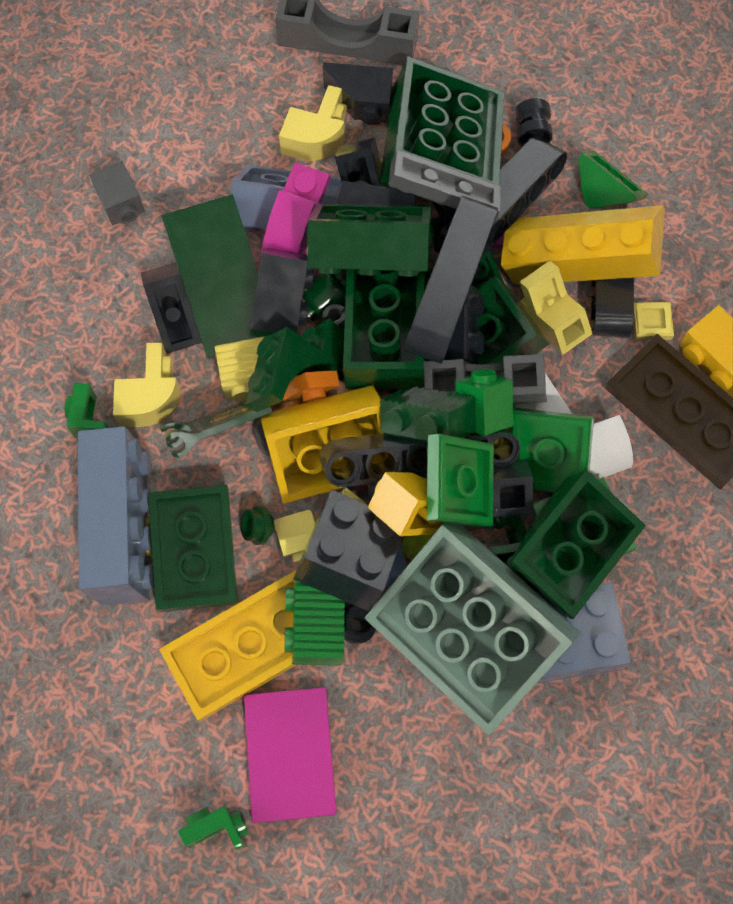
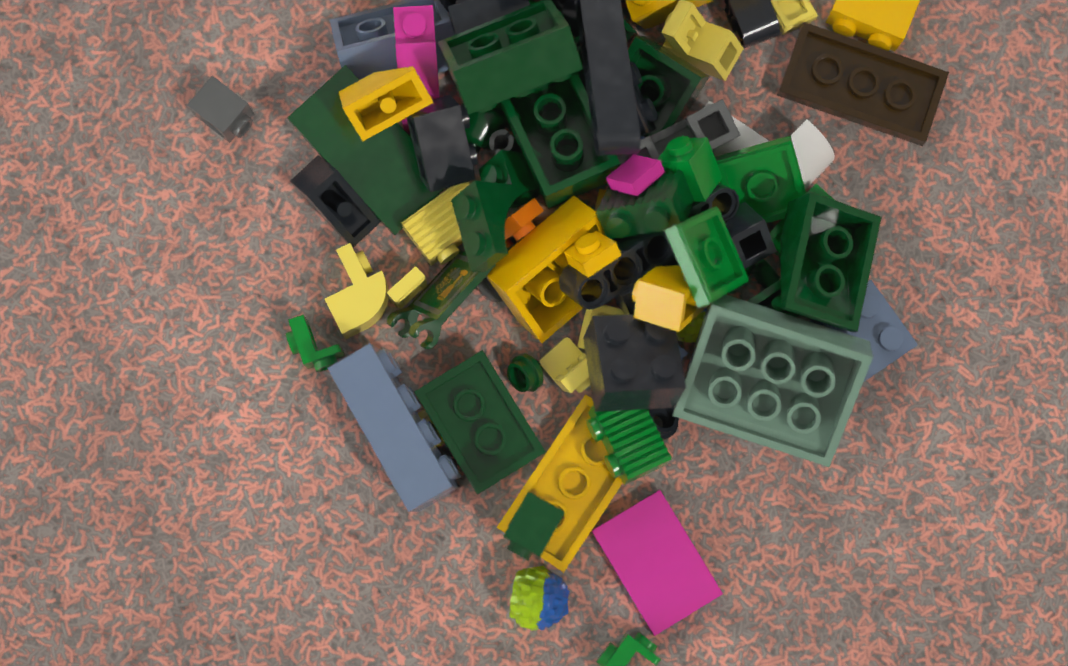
camera: 30 degrees left, 10 degrees up
(160, 732) = (538, 598): none -> lime piece
(183, 658) = (532, 526): none -> dark green brick
(192, 405) = (407, 288): none -> light yellow tile
(245, 231) = (383, 100): none -> yellow slope
(359, 434) = (592, 253): none -> yellow plate
(431, 384) = (635, 175): none -> dark pink tile

